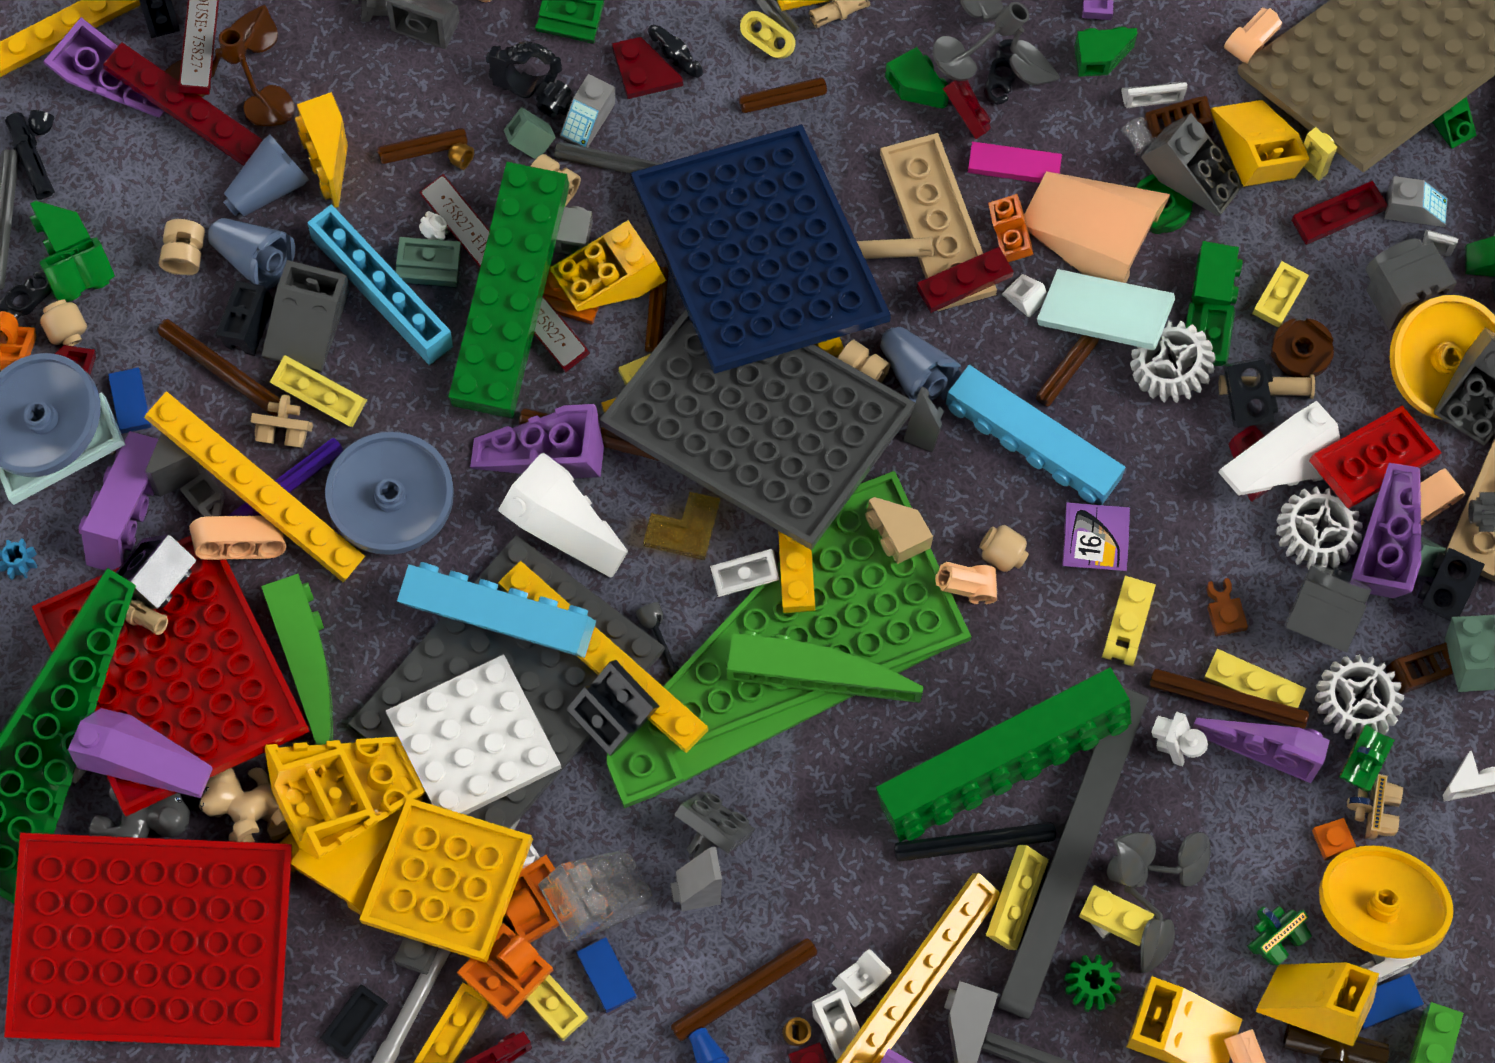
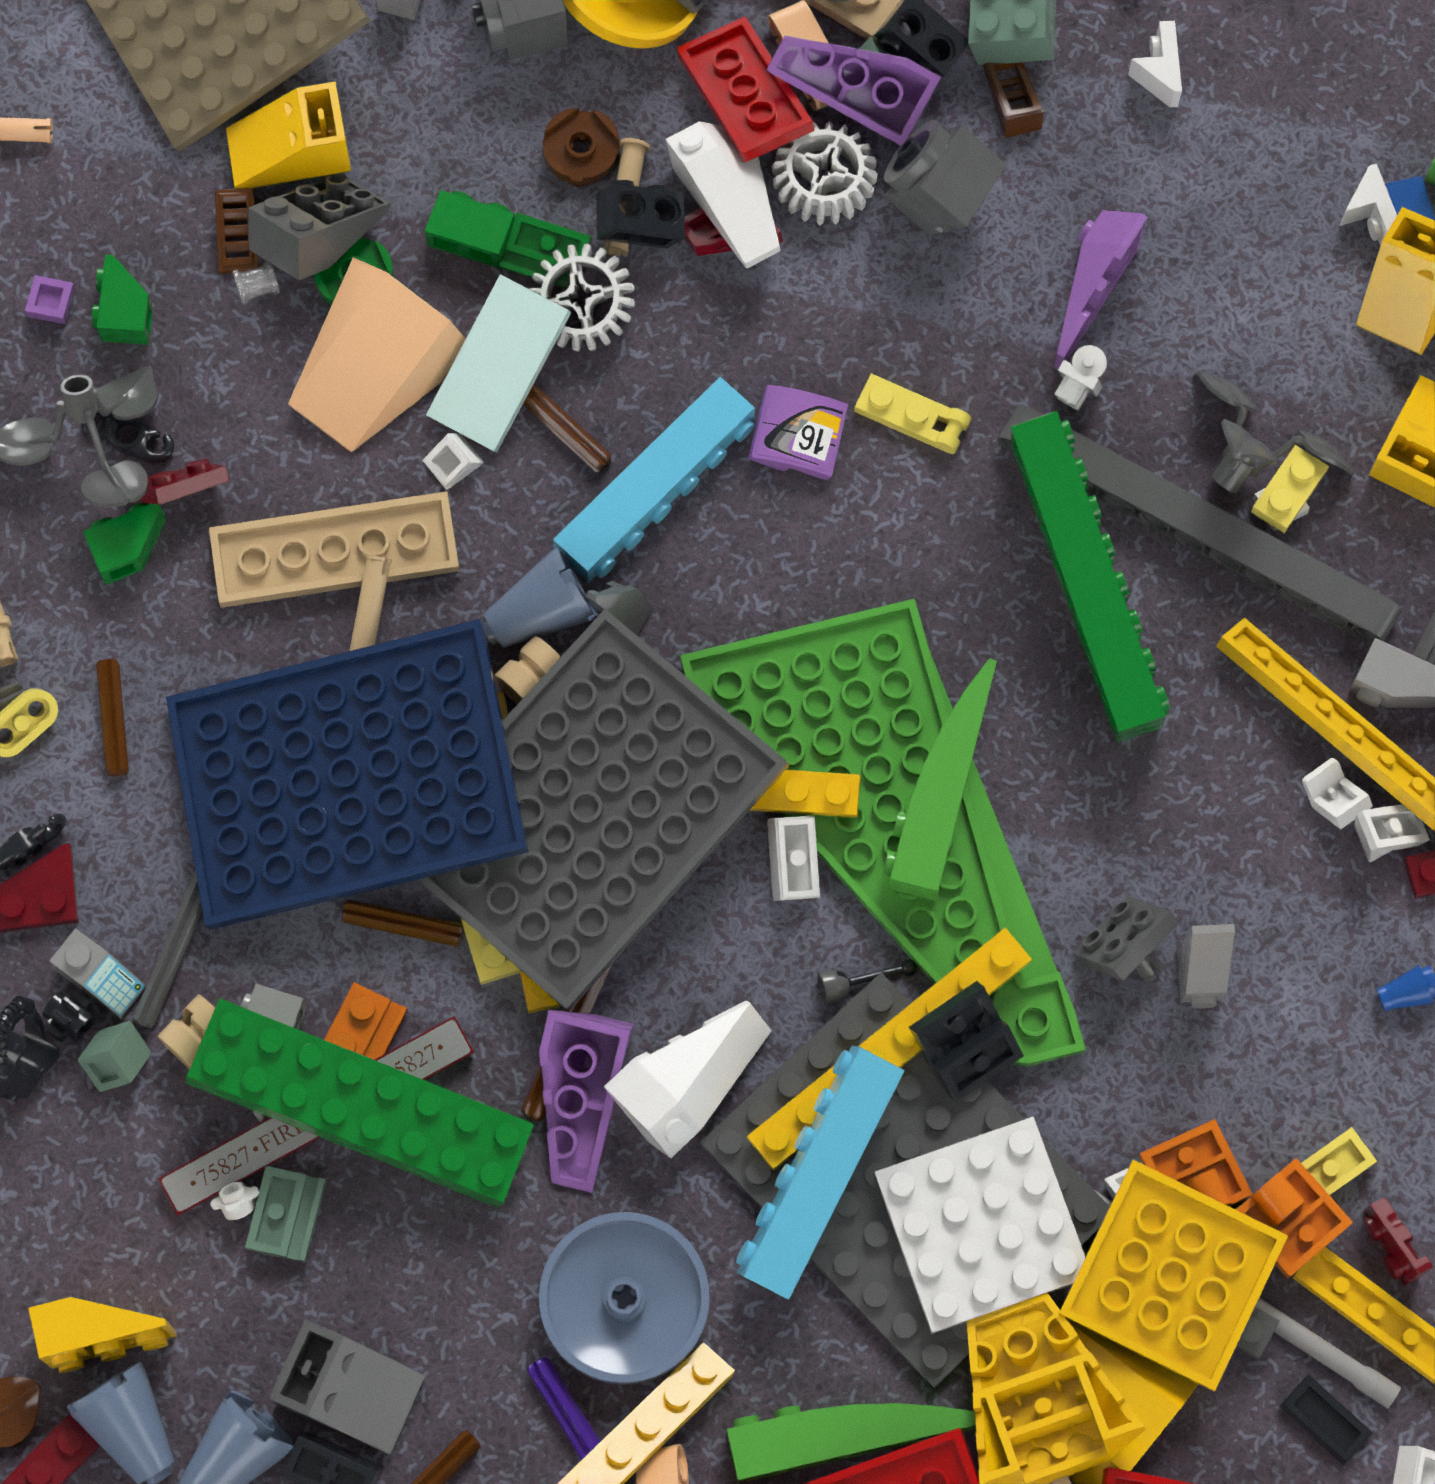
camera: 80 degrees left, 5 degrees up
(266, 425) = (504, 1418): tan hips -> none
(318, 391) = (456, 1381): light yellow plate -> none
(380, 284) = (315, 1280): medium azure brick -> none
(421, 145) = (105, 1204): reddish brown axle -> none
(458, 152) = (129, 1154): pearl gold hinge -> none
(596, 893) = (1202, 1094): clear slope -> none
(606, 975) = (1296, 1100): blue tile -> none
(608, 270) = (346, 973): yellow slope -> none
(685, 536) = (730, 922): clear yellow plate -> none
(744, 989) = (1331, 937): reddish brown axle -> none
(803, 1031) = (1391, 875): pearl gold hinge -> none
(900, 527) = (769, 656): tan slope -> none
(964, 279) = (430, 526): dark red plate -> none
(974, 582) = (843, 589): light nougat piece -> none
(975, 841) = (1173, 638): black axle -> none
(1004, 548) = (802, 541): tan head -> none
(1011, 228) = (359, 461): orange slope -> none
(1012, 162) = (262, 444): dark pink tile -> none
(1017, 897) = (1250, 600): light yellow plate -> none
(1081, 986) = (1379, 538): green gear -> none
(1154, 94) = (192, 255): white slope -> none
(1225, 613) = (916, 300): dark orange plate -> none
(1229, 698) = (1029, 316): reddish brown axle -> none
(1247, 678) = (1009, 285): light yellow plate -> none
(1251, 38) = (138, 125): light nougat piece -> none
(1275, 930) = (1322, 316): green hips -> none
(1280, 294) = (504, 157): light yellow plate -> none
(1320, 151) = (326, 66): light yellow plate -> none
(1333, 838) = (1212, 234): orange plate -> none
(1339, 212) = (402, 68): dark red plate -> none
(1366, 758) = (1129, 174): green hips -> none
(1370, 705) = (1064, 193): white gear -> none
(1381, 794) = (1181, 181): tan hips -> none
(1386, 902) = (1306, 187): yellow dish -> none

